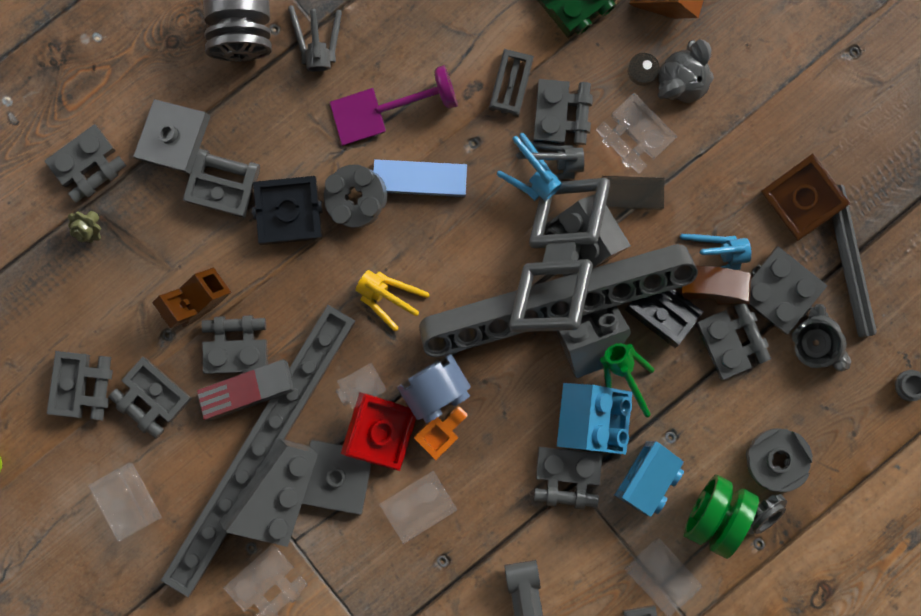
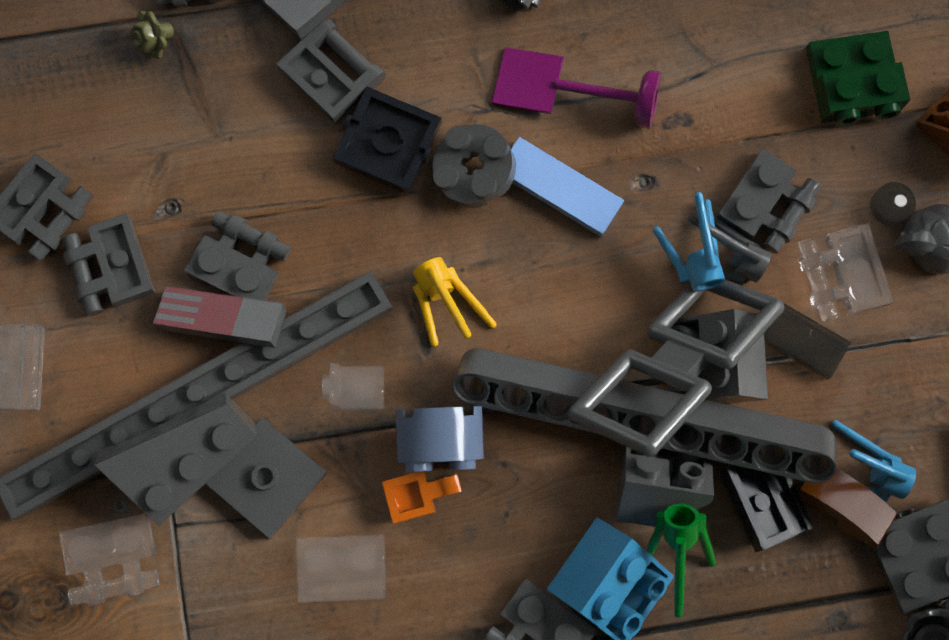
camera: 30 degrees right, 5 degrees down
(192, 299) = (220, 181): reddish brown brick -> none
(379, 432) = (345, 451): red plate -> none
(505, 107) = (705, 160): dark grey tile -> none
(724, 344) = (818, 583): dark grey plate -> none

